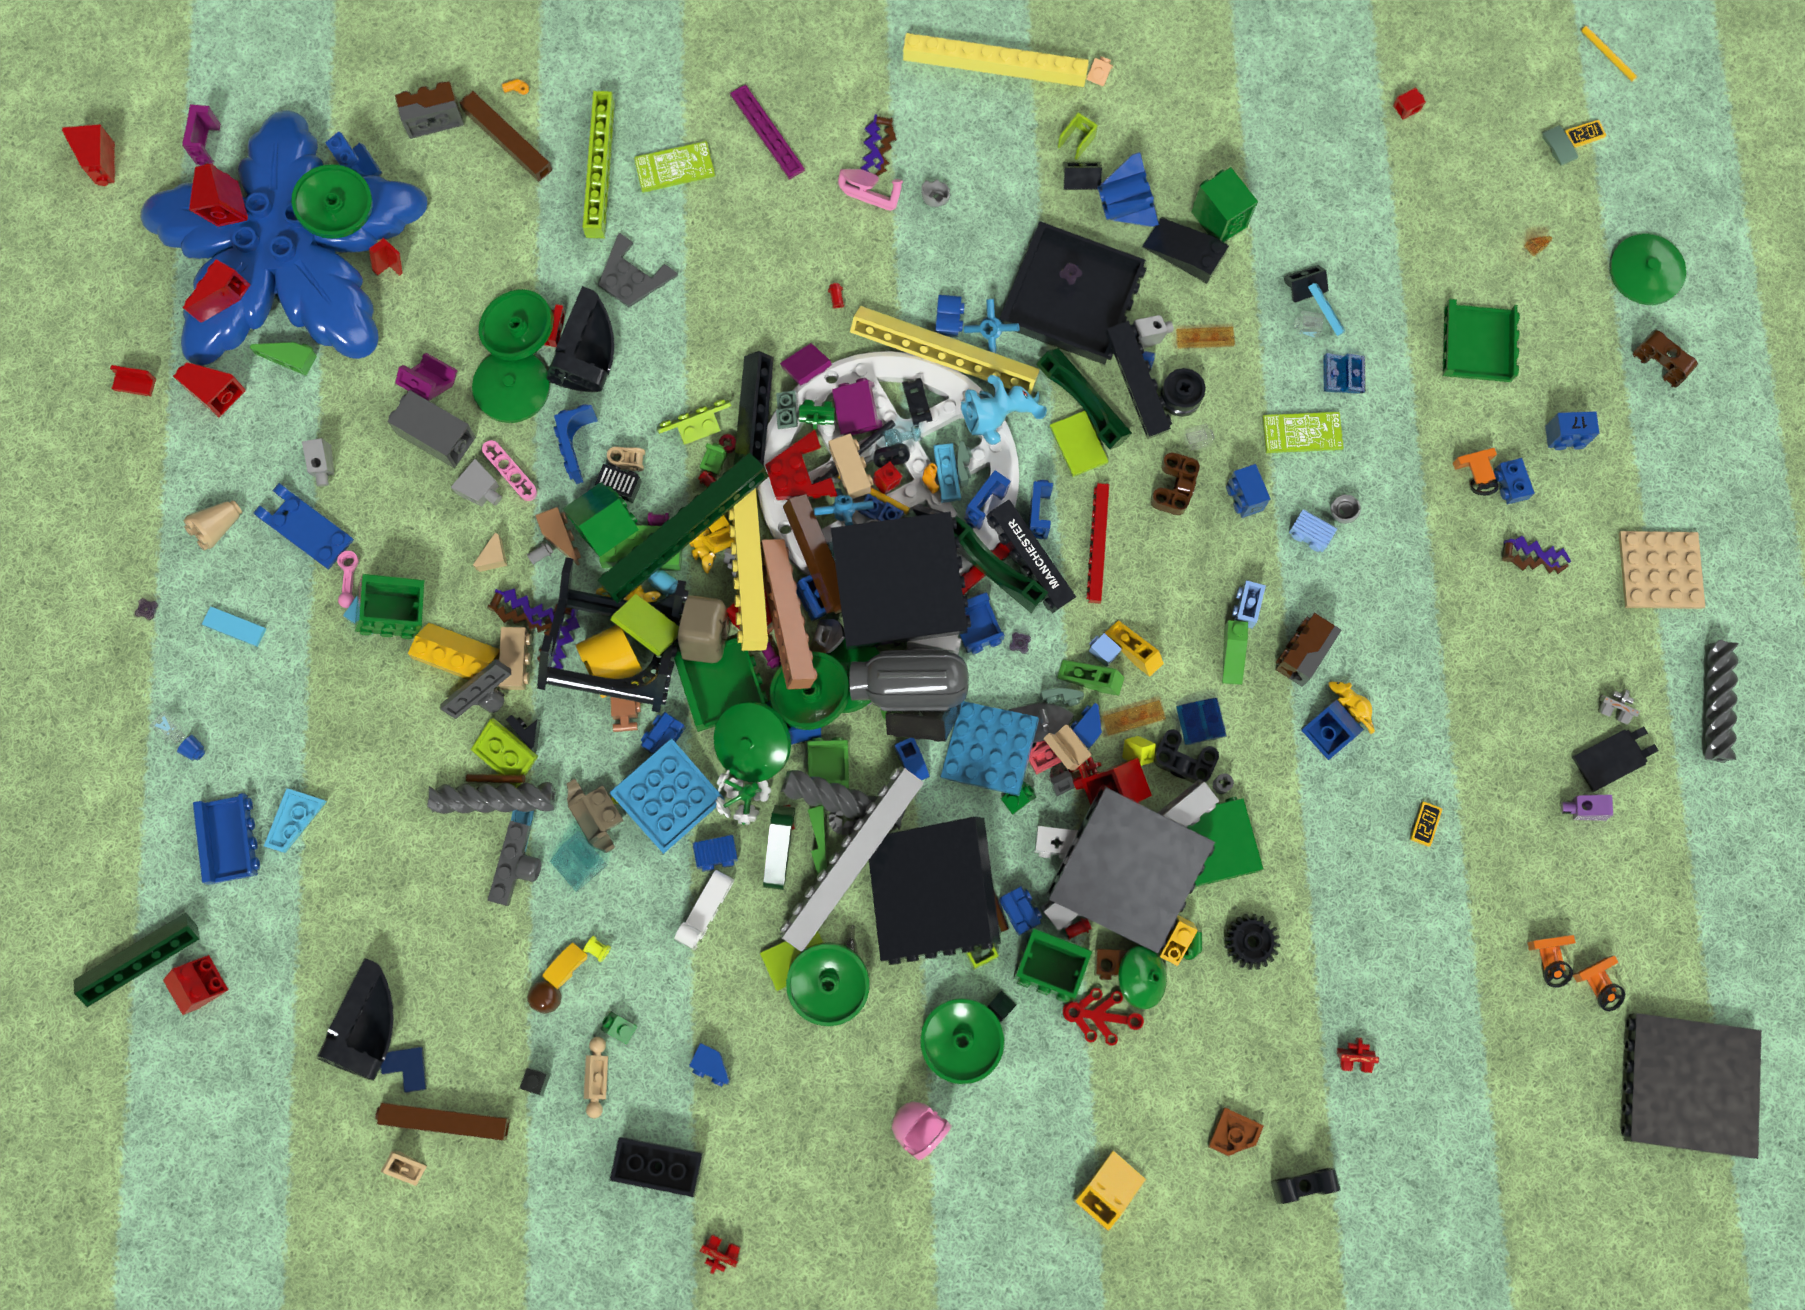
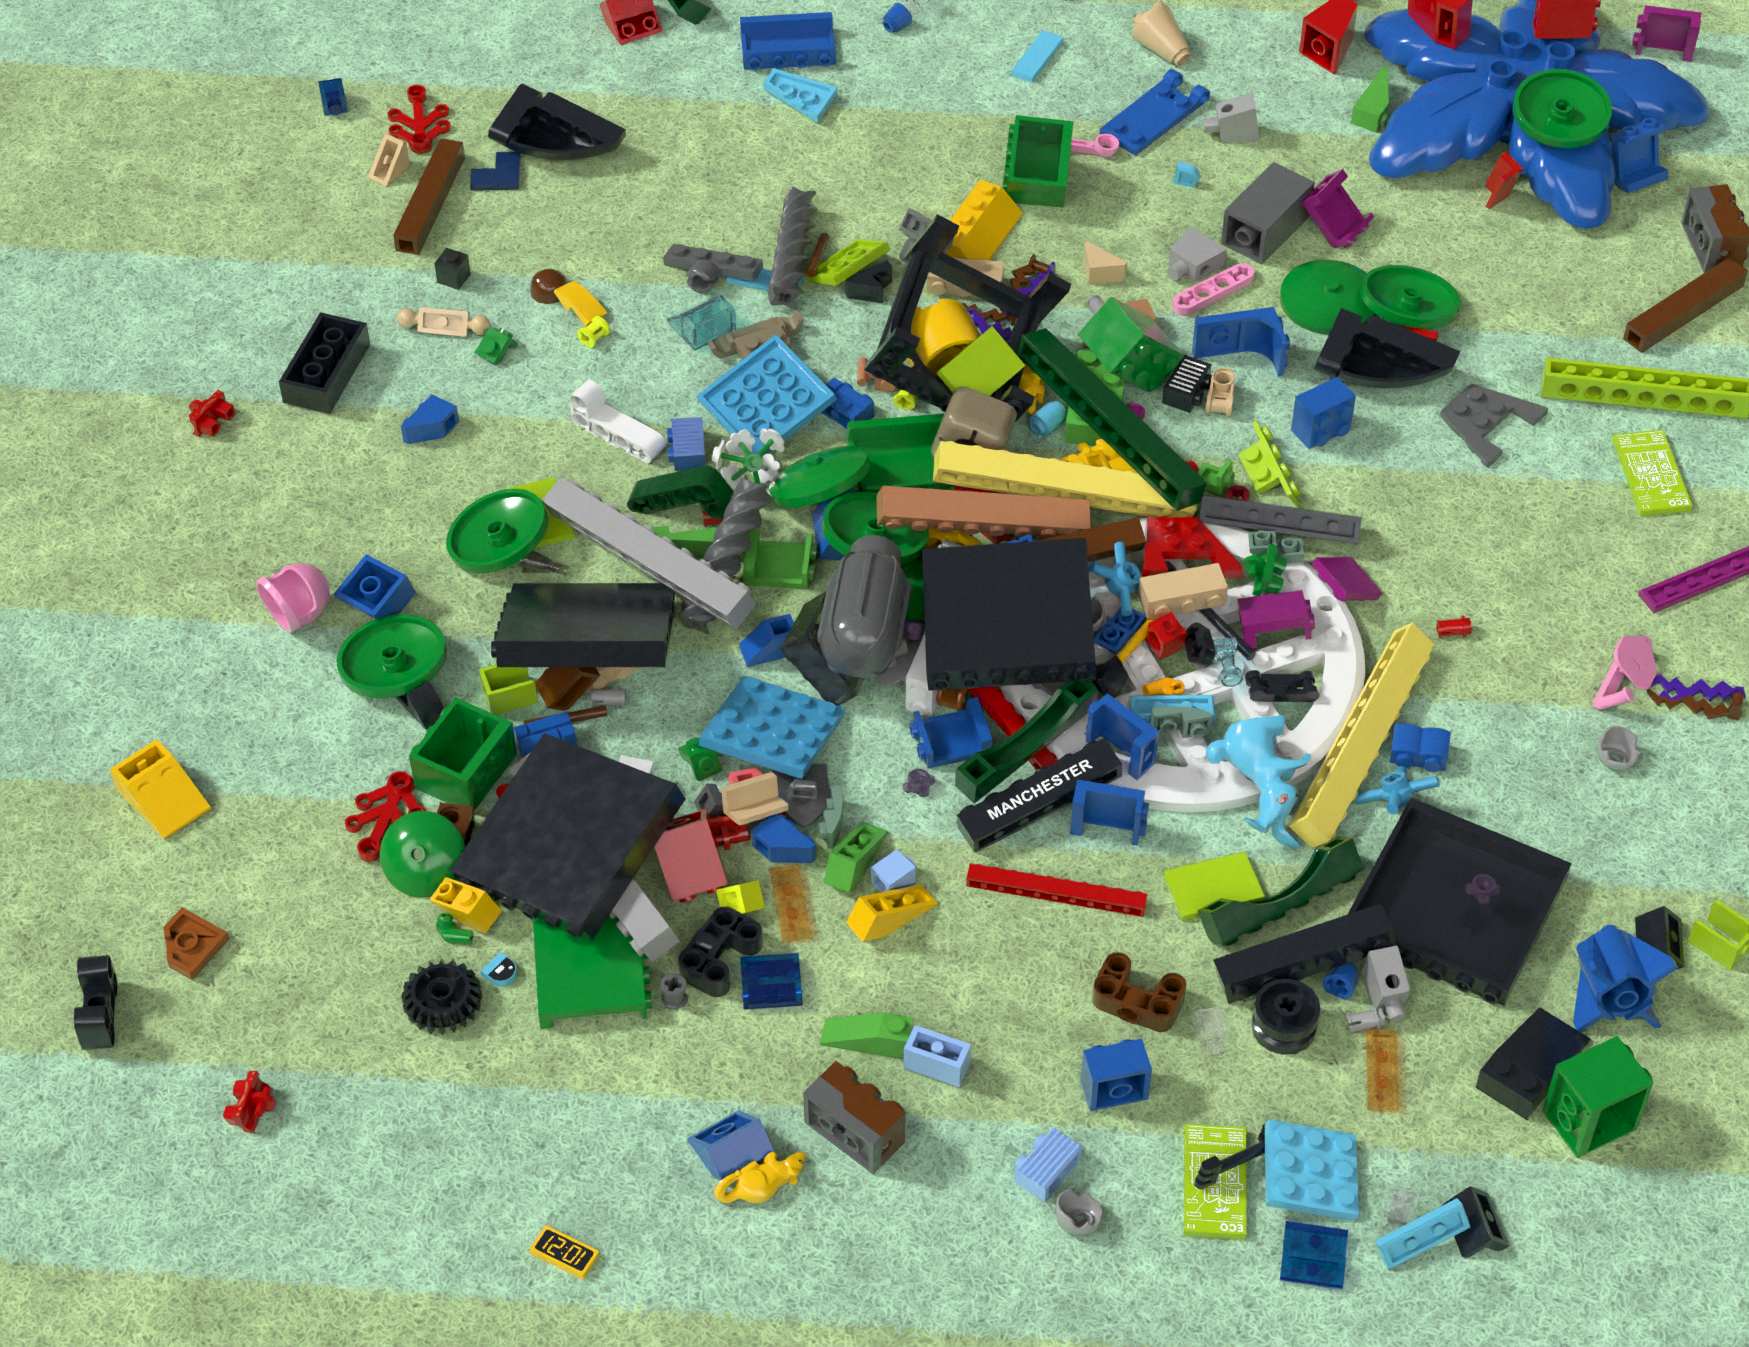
camera: 100 degrees right, 25 degrees down
(318, 1239) = (332, 96): none -> clear blue brick
(345, 1153) = (419, 141): none -> red plant
(381, 496) = (1186, 175): none -> medium azure tile
(649, 382) = (1323, 413): none -> blue brick
(900, 1069) = (375, 589): none -> blue slope
(1172, 346) = (1368, 1020): none -> light grey pin
(1220, 907) = (500, 970): none -> tile
(1289, 375) = (1311, 1170): none -> medium azure plate
(1307, 429) = (1213, 1166): none -> black hinge

